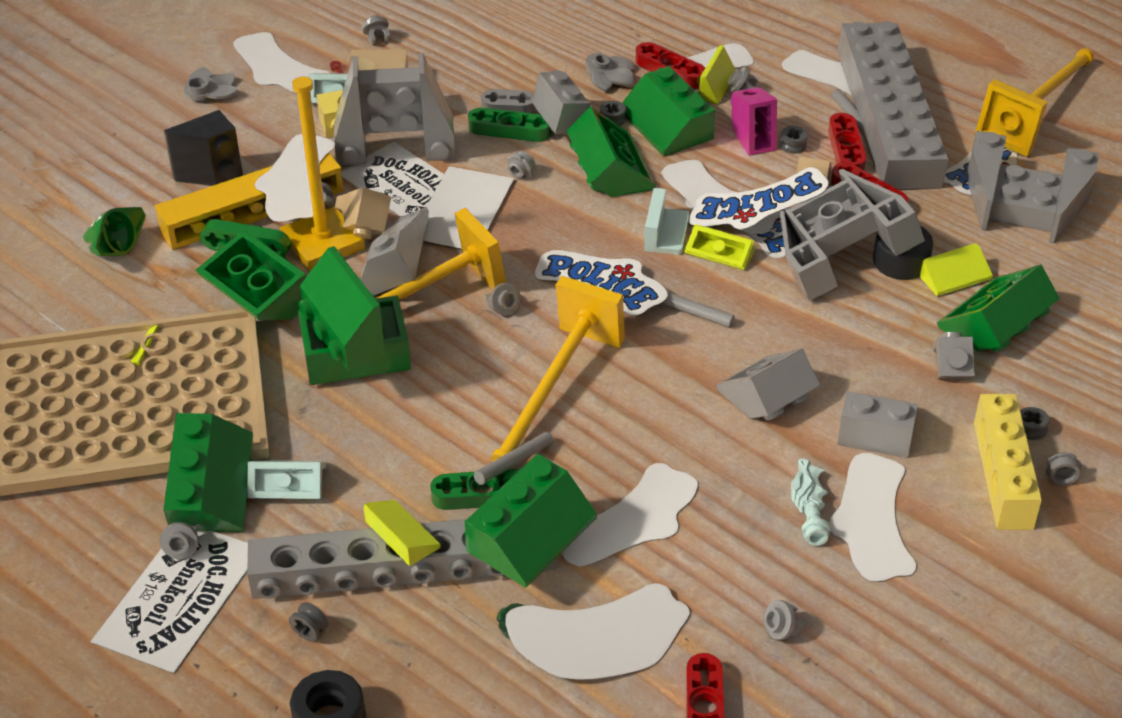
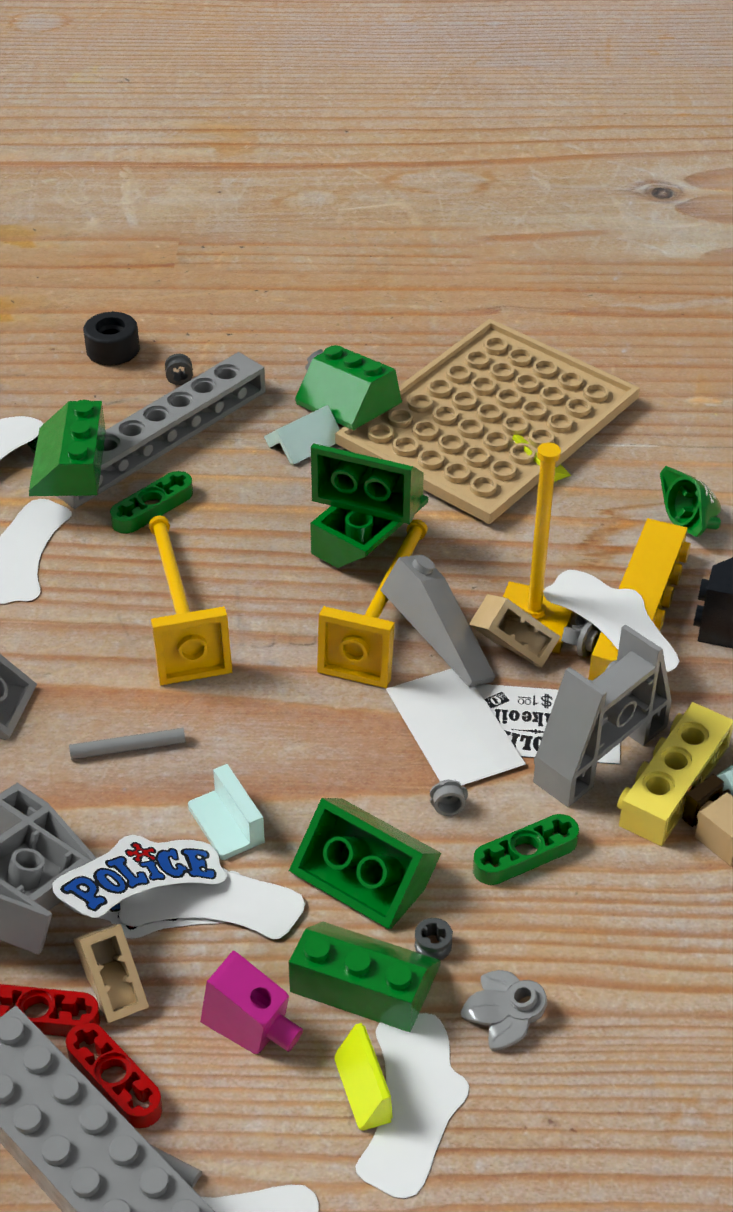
camera: 140 degrees right, 0 degrees up
(175, 602) = (282, 350): white sticker -> none
(220, 232) = (605, 559): green beam -> none
(255, 278) = (503, 526): green slope -> none
(400, 530) = (161, 408): neon yellow slope -> none
(504, 299) = (297, 642): light grey plate -> none
(508, 100) = (566, 883): light grey beam -> none
(513, 458) = (144, 521): light grey bar -> none
(558, 100) = (475, 889): light grey slope -> none
(616, 275) = (229, 727): sticker -> none
(653, 56) = (457, 1053): red beam -> none
(720, 247) = (155, 825): neon yellow slope -> none
(742, 80) = (330, 1092): light grey plate -> none
(793, 139) = (190, 1050): dark grey bush -> none

